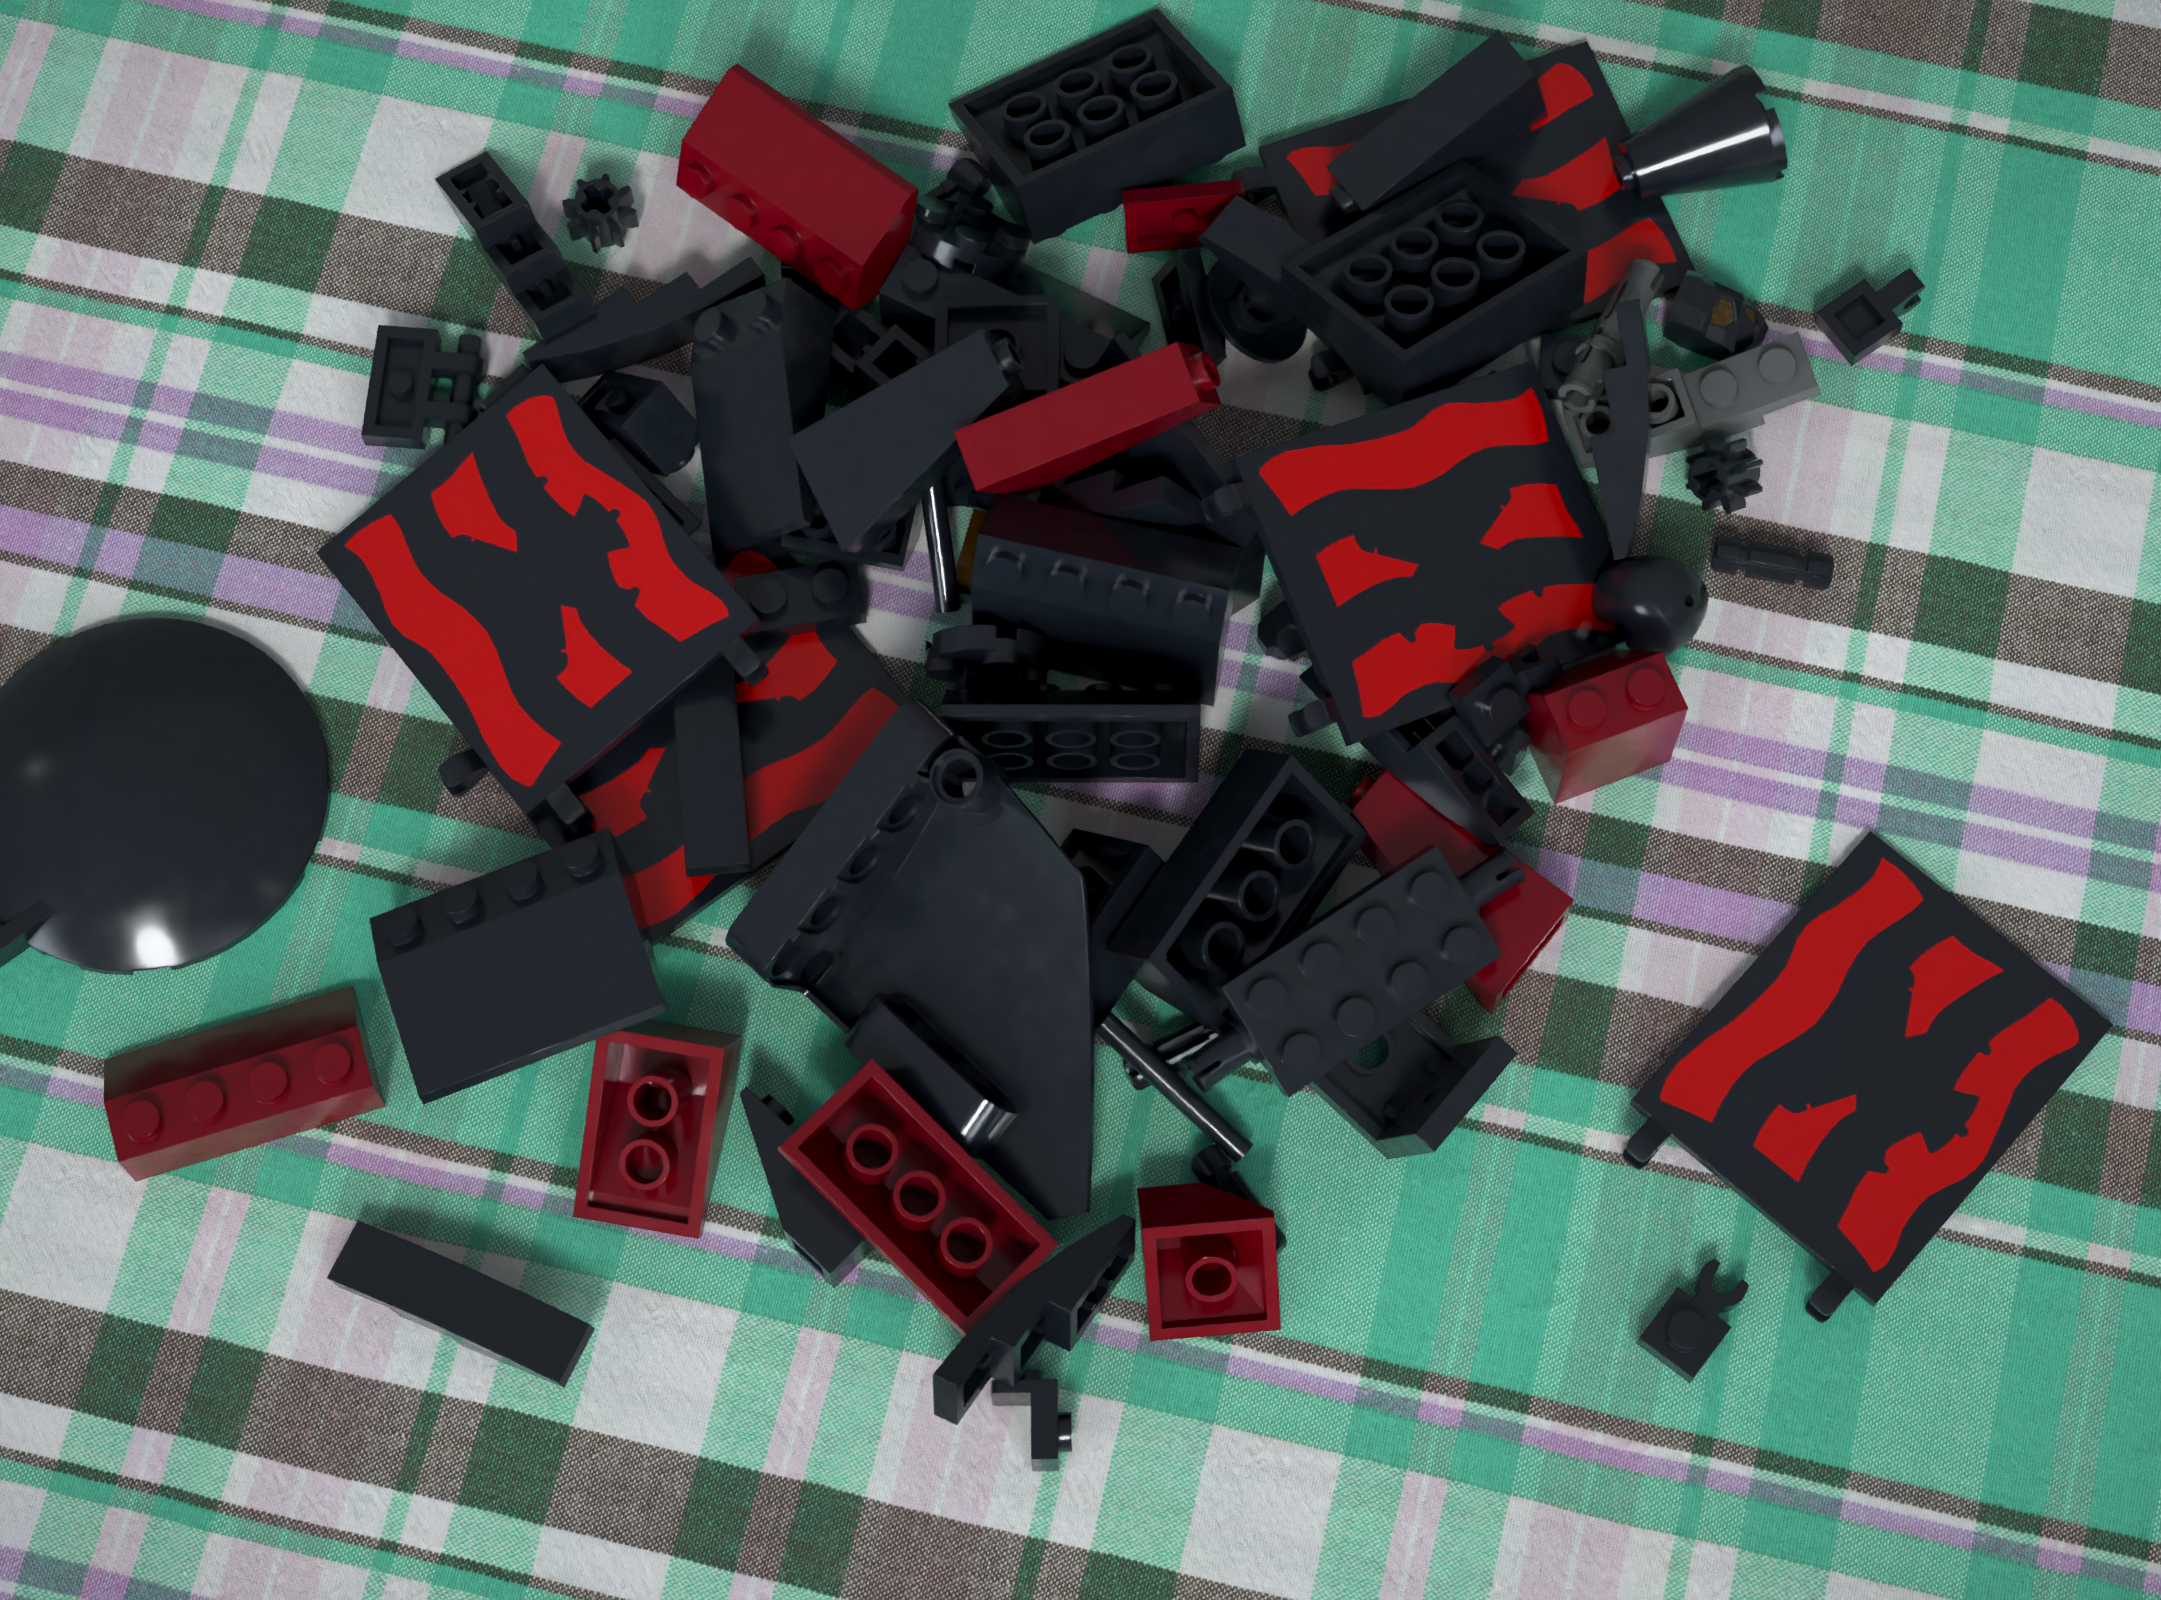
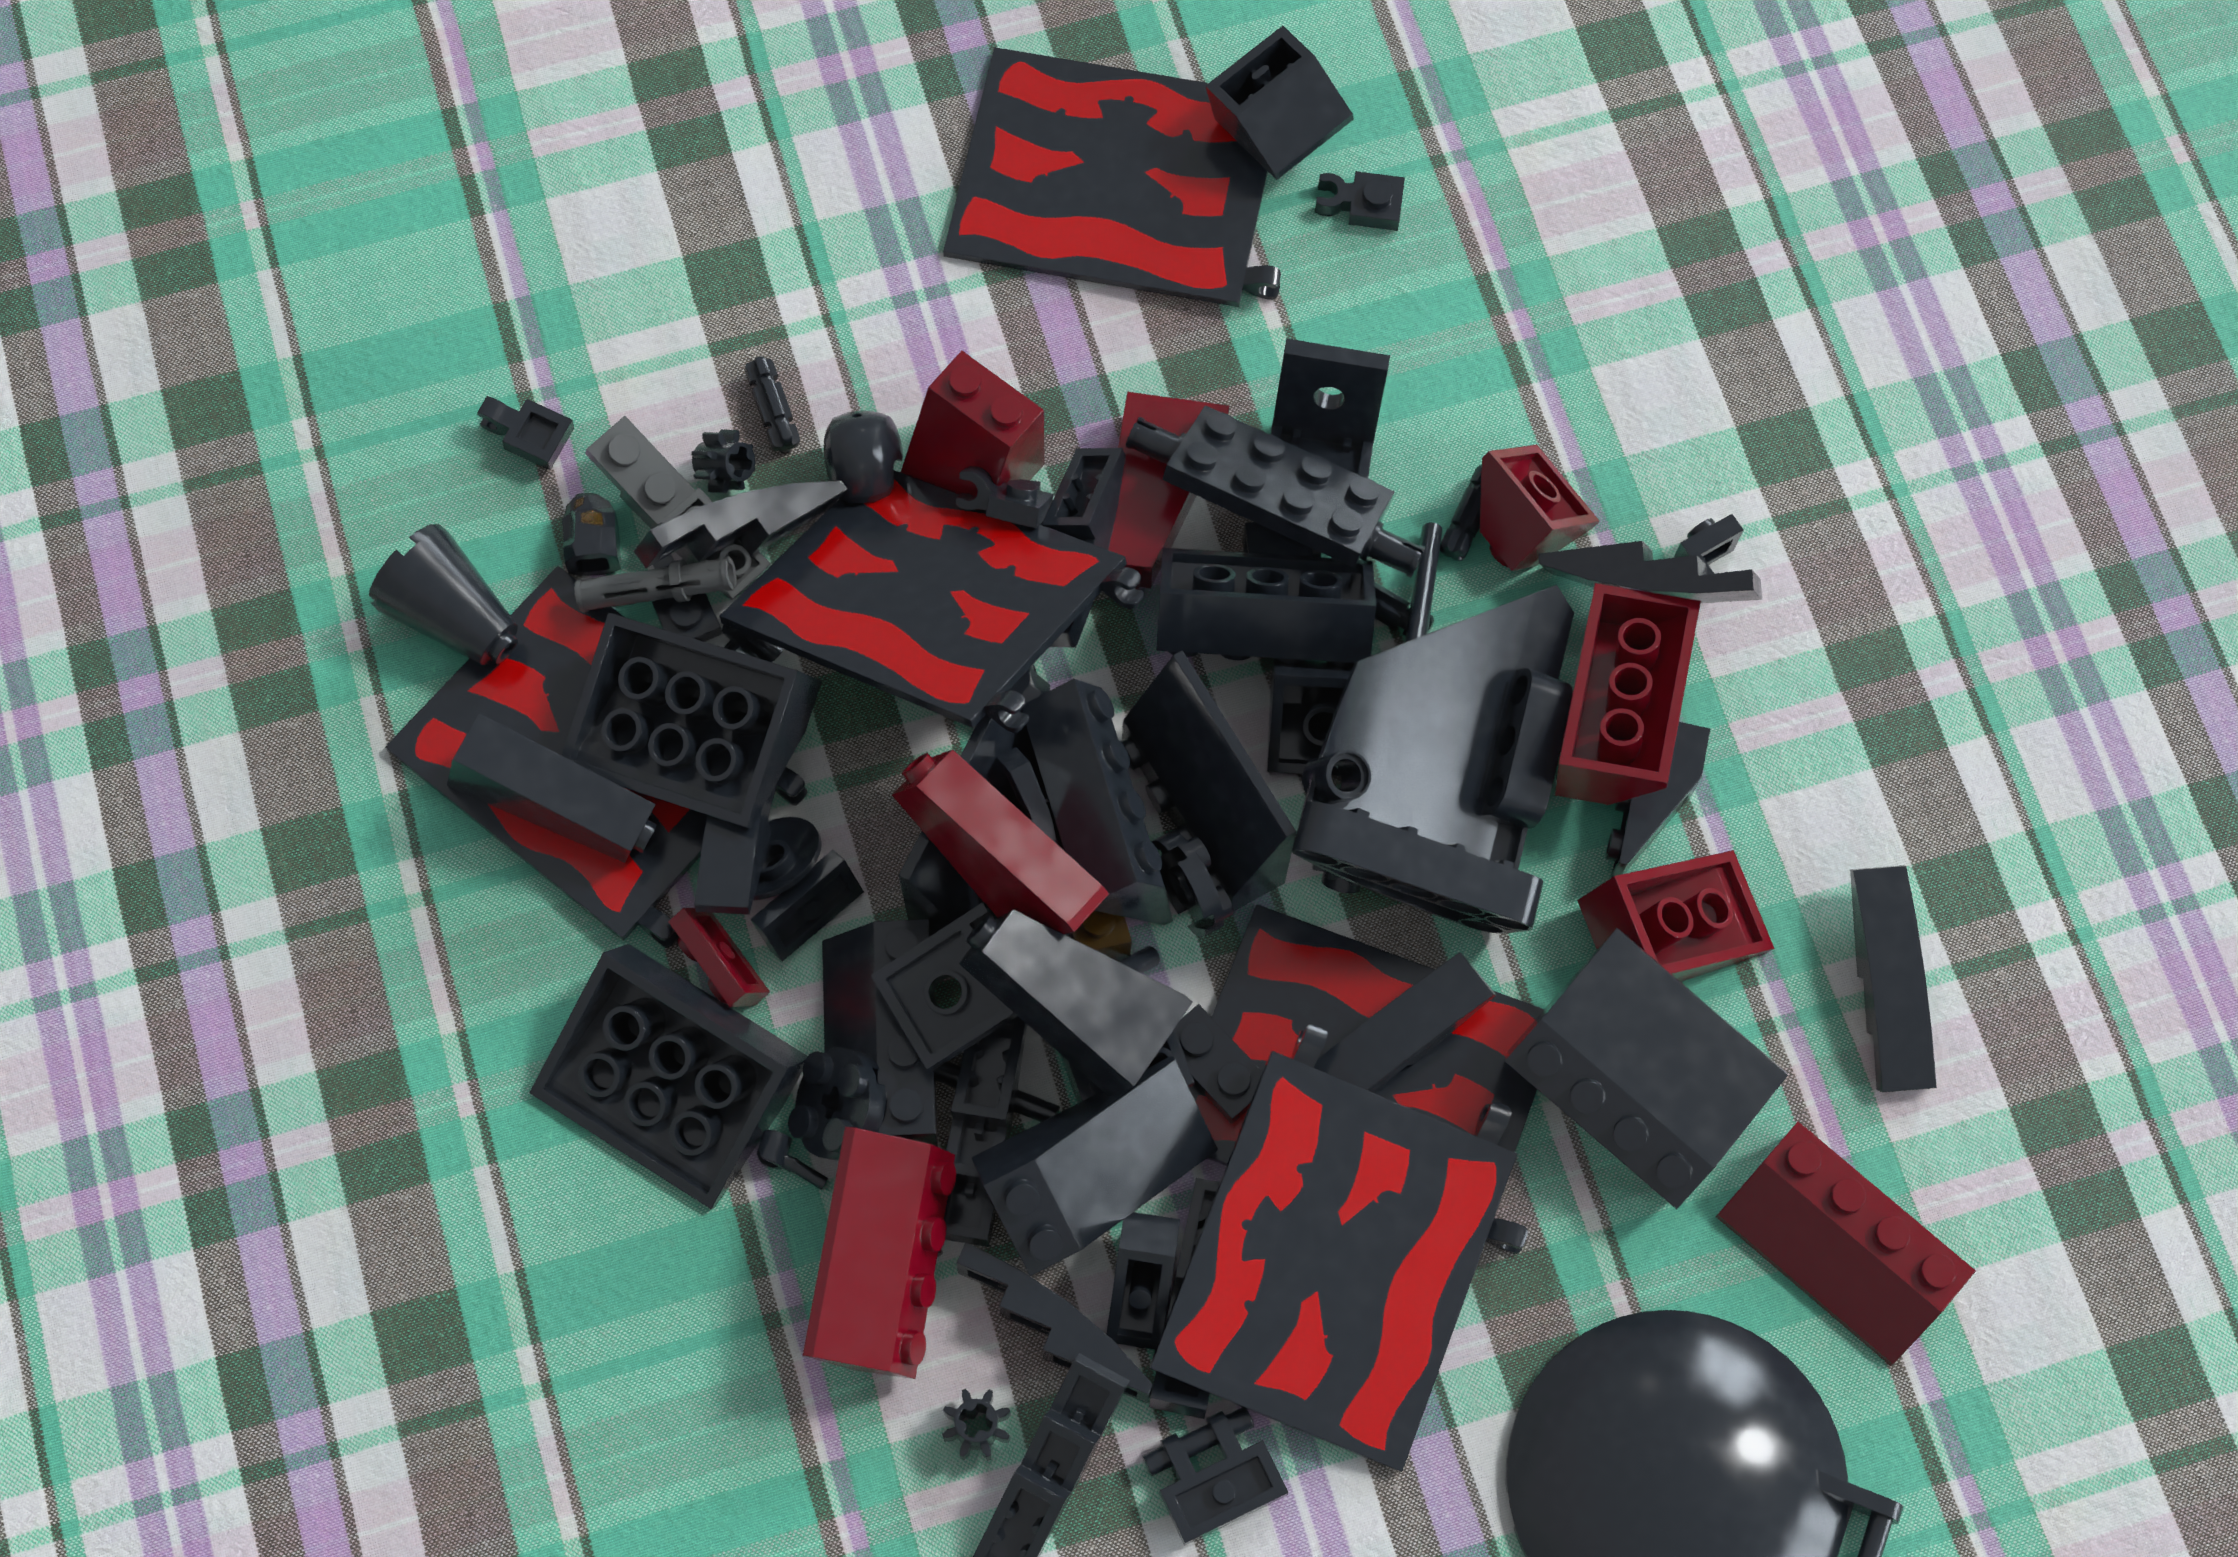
camera: 125 degrees left, 0 degrees up
(1848, 1258) = (1278, 102): none -> black slope

